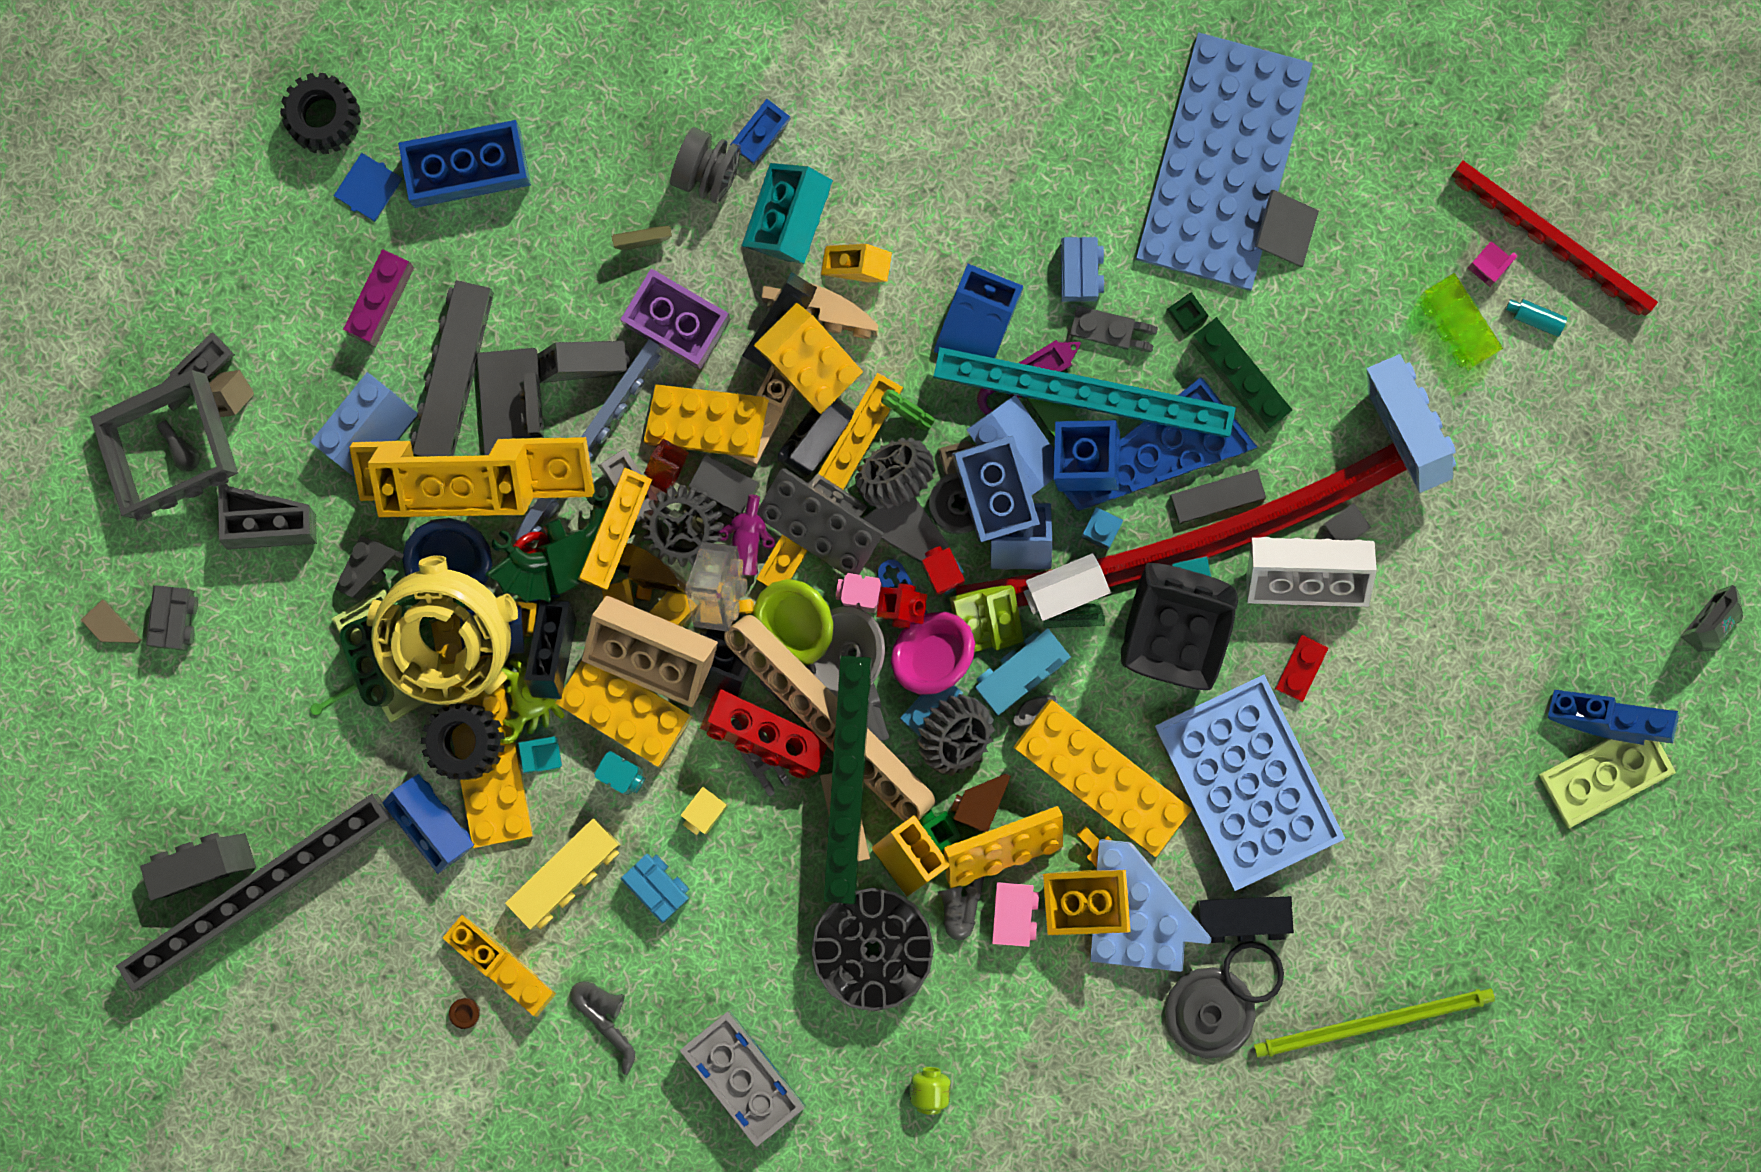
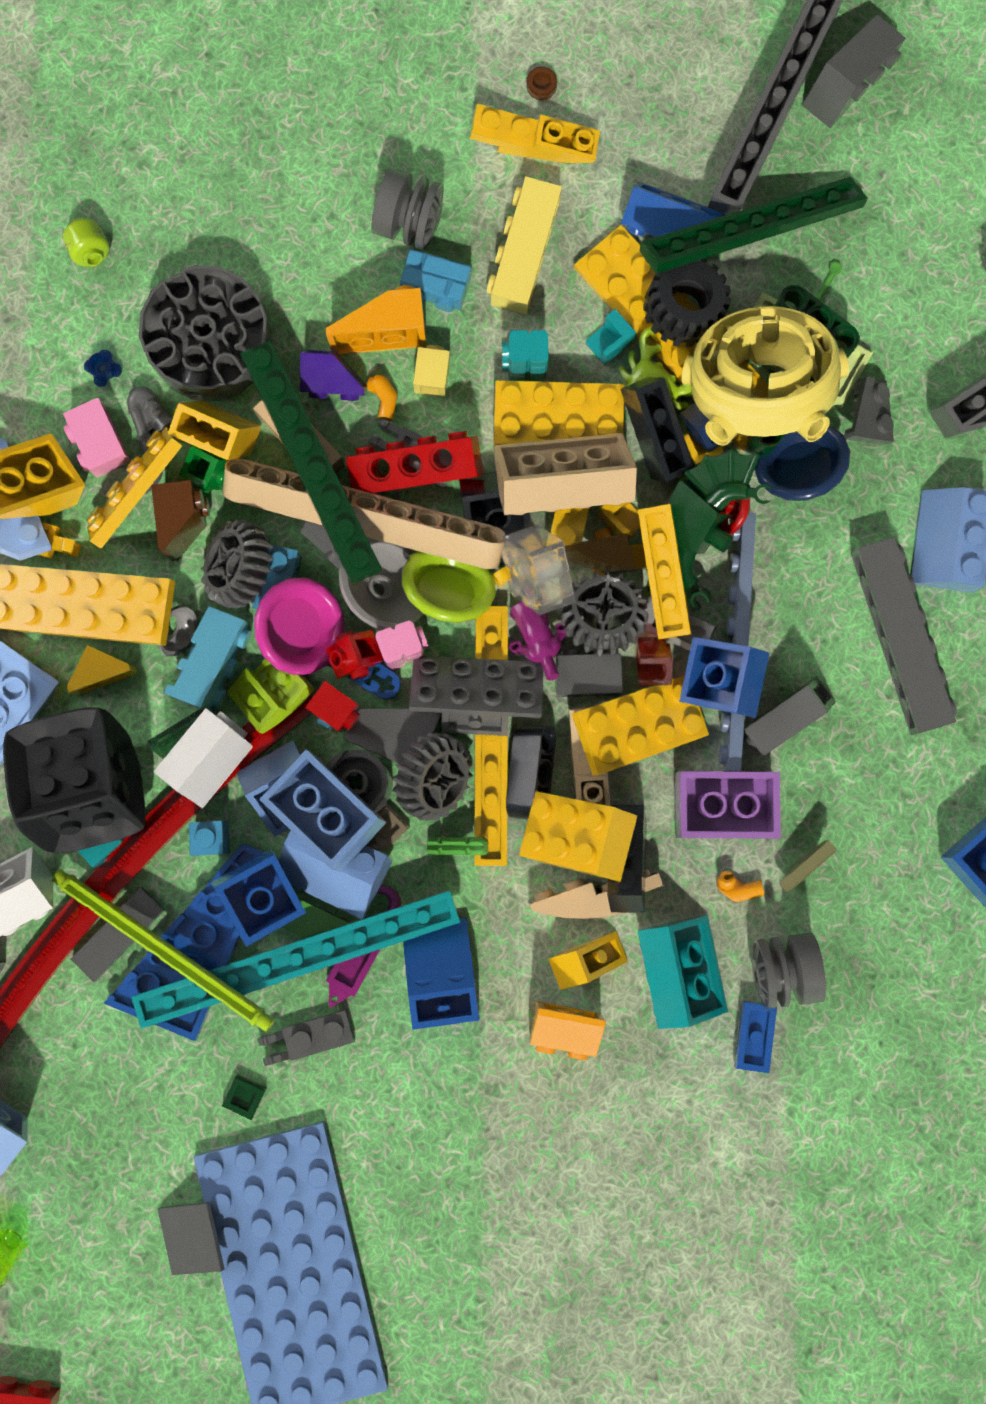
camera: 140 degrees right, 0 degrees up
(369, 772) = (752, 224): none -> dark green plate
(471, 484) = (800, 542): yellow bracket -> none
(510, 395) = (828, 635): dark grey bracket -> none
(595, 1005) = (426, 152): dark grey piece -> none
(619, 416) = (724, 676): none -> blue brick
(644, 957) = (401, 207): none -> dark grey wheel
(707, 252) = (736, 890): none -> light orange arm
(712, 867) = (382, 324): none -> light orange slope
(742, 1078) = (258, 156): light grey piece -> none
(752, 815) = (387, 394): none -> light orange arm
(790, 855) = (329, 374): none -> dark purple slope
(904, 219) = (566, 1030): none -> light orange slope
(982, 969) = (93, 366): none -> clear blue plate
(1080, 269) = (369, 1079): medium blue brick -> none
(1116, 717) = (97, 670): none -> yellow slope
(1184, 458) = (162, 949): none -> lime piece
(1241, 375) = (155, 1064): dark green brick -> none

